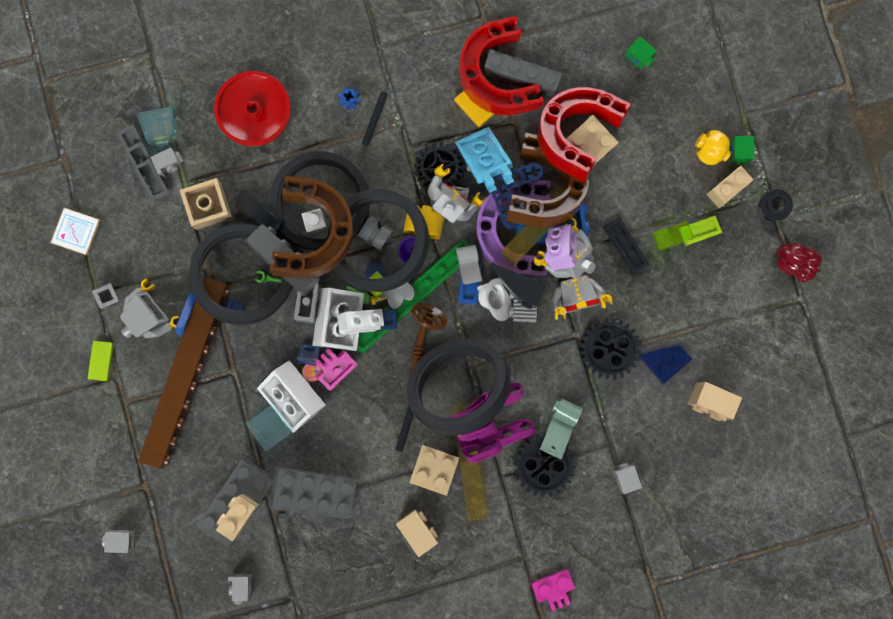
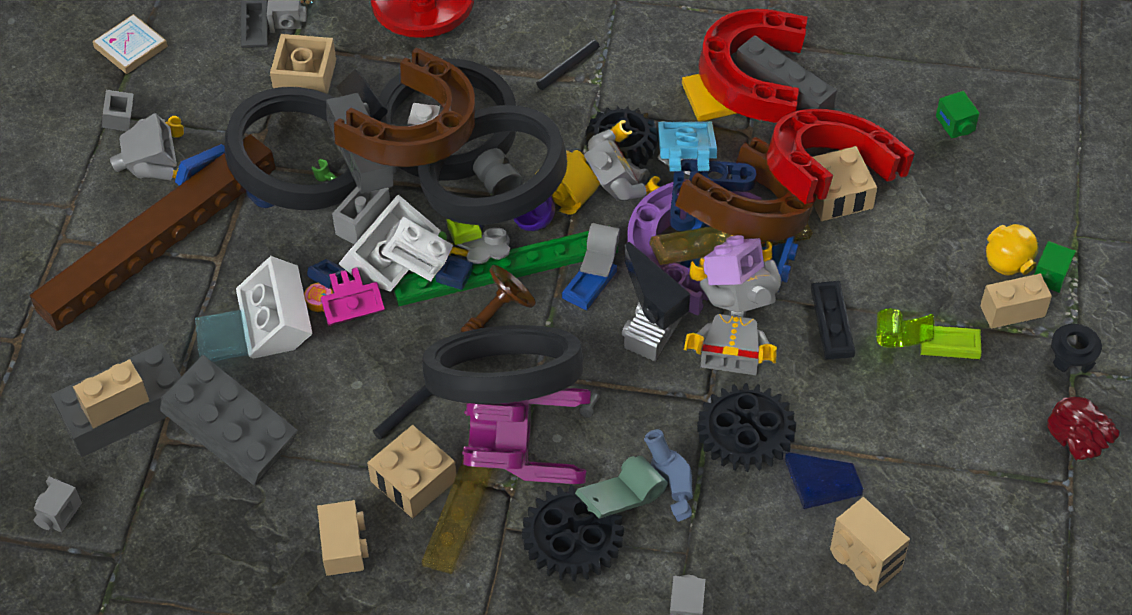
camera: 30 degrees right, 30 degrees down
(100, 361) = (63, 182): lime tile -> none
(346, 95) = (548, 30): blue gear -> none
(495, 298) = (614, 301): white piece -> none
(579, 395) = (674, 471): none -> sand blue arm

